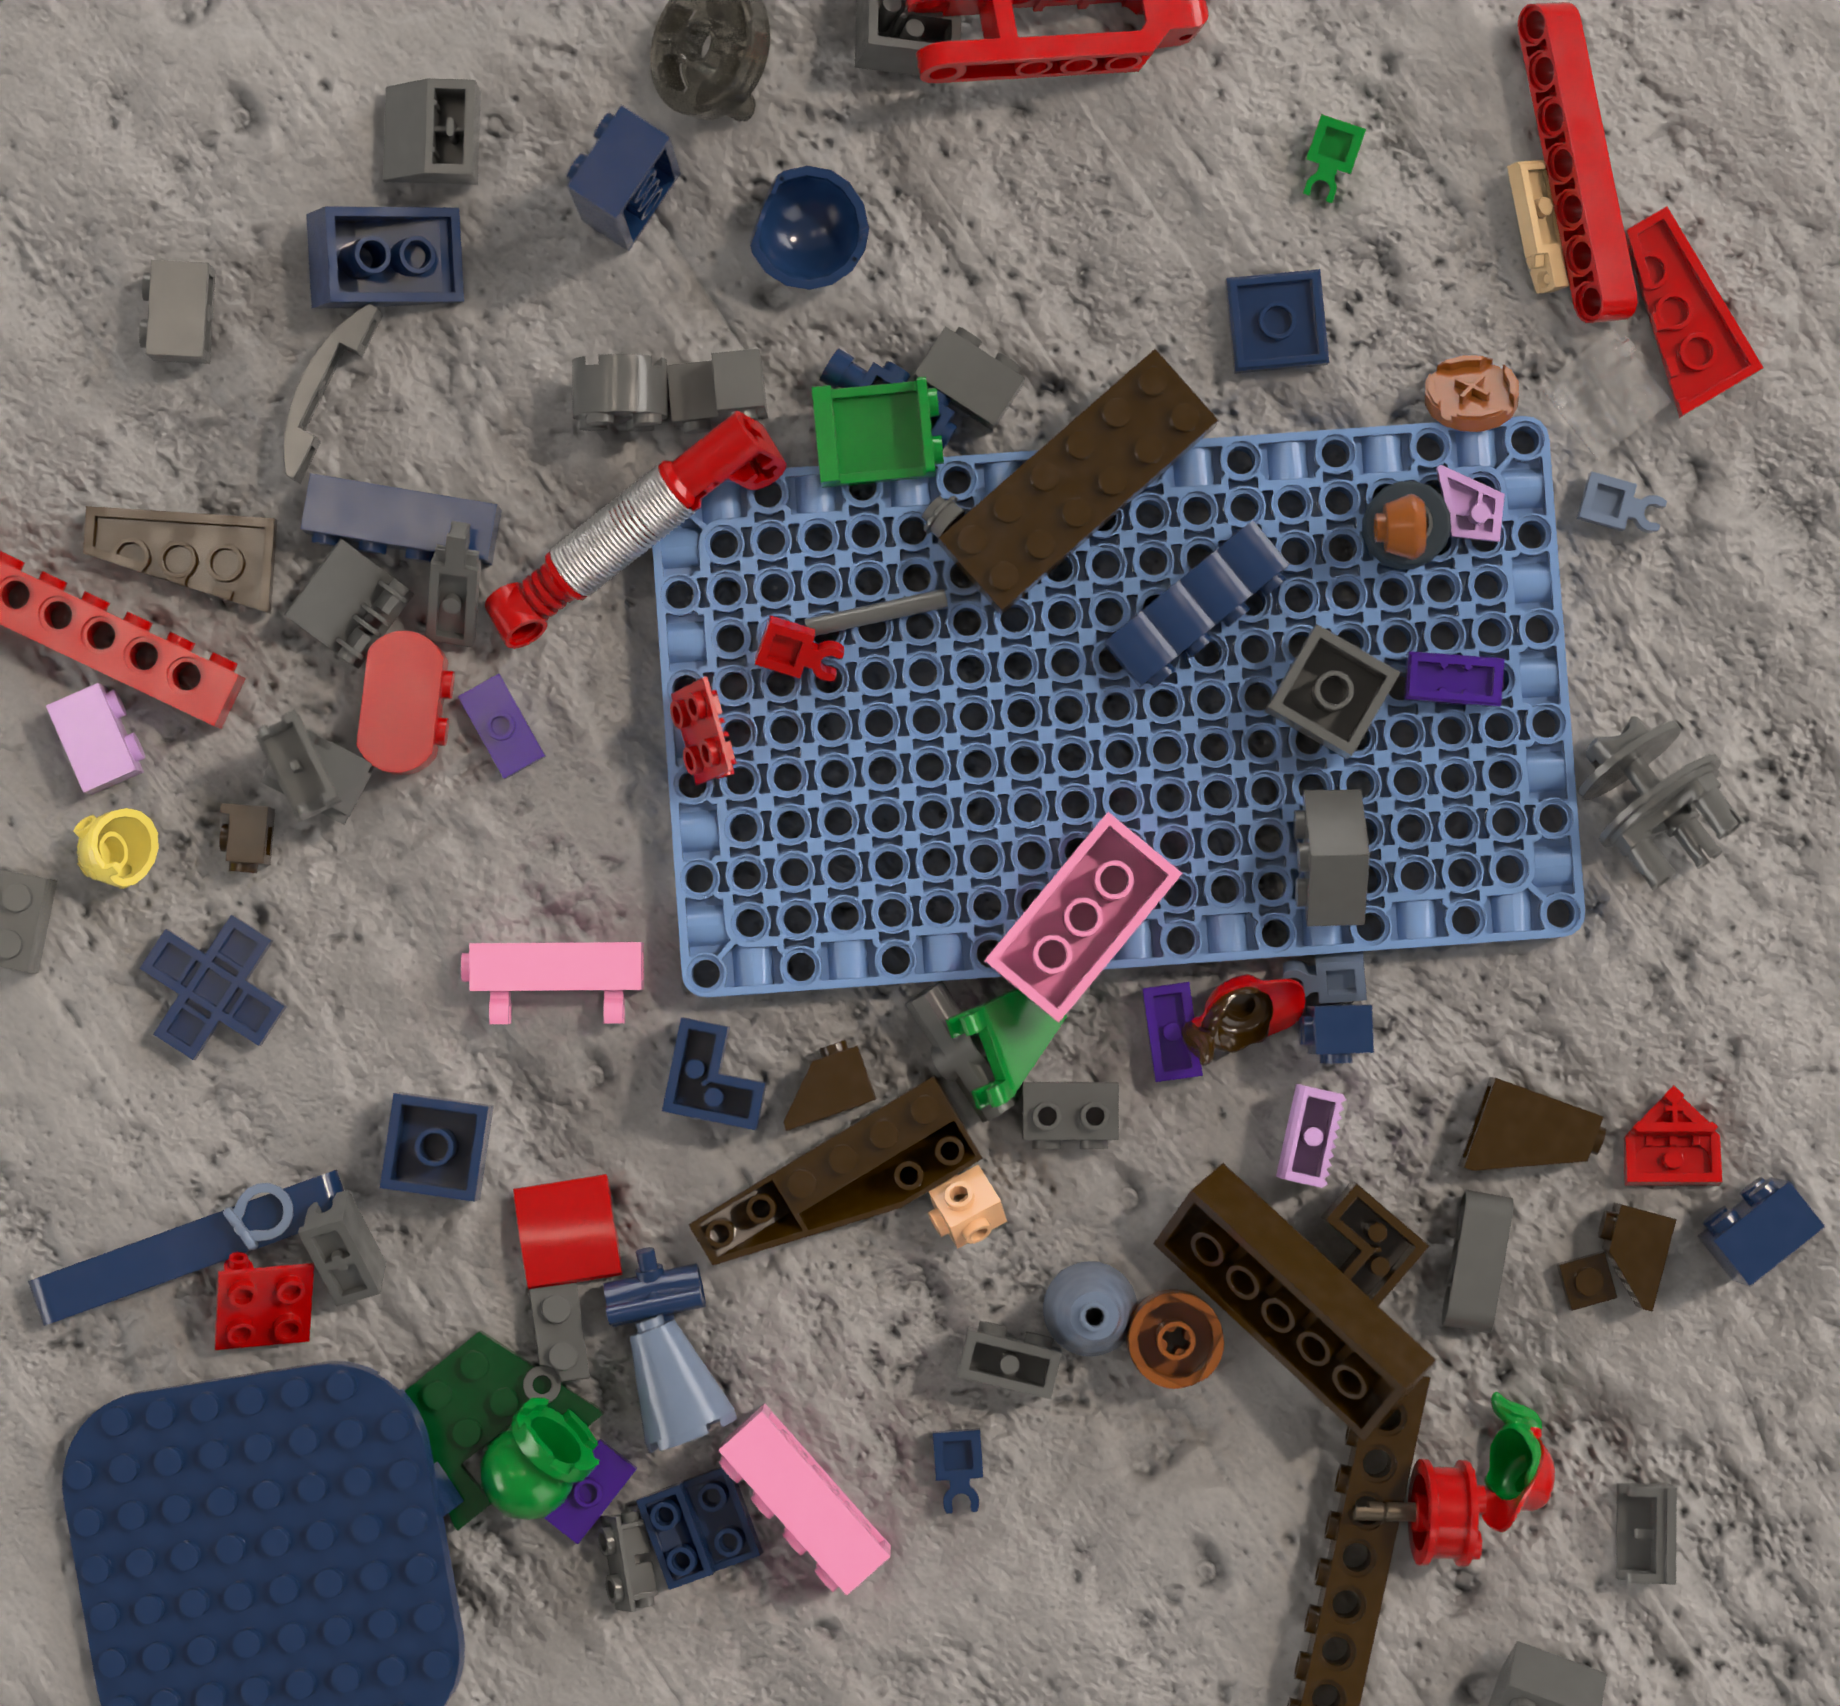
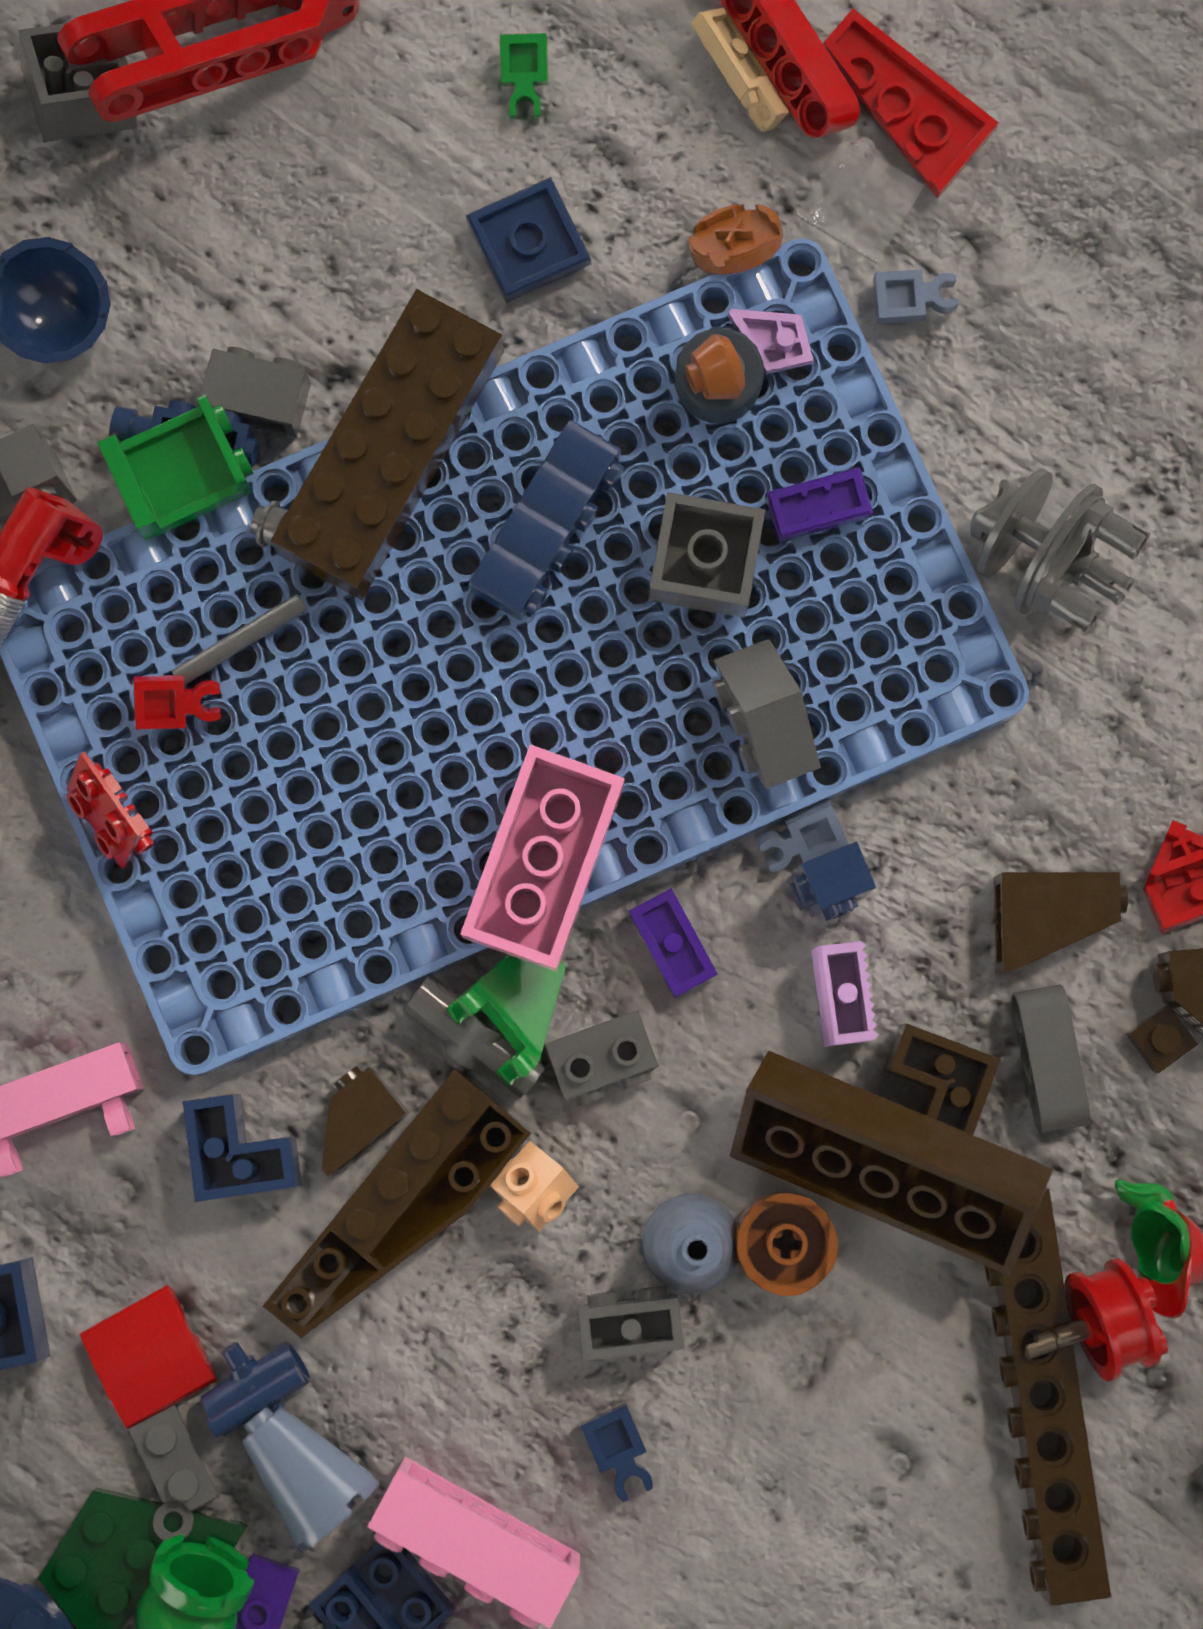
camera: 25 degrees left, 5 degrees down
(1243, 1014) = (735, 900): dark brown hair -> none

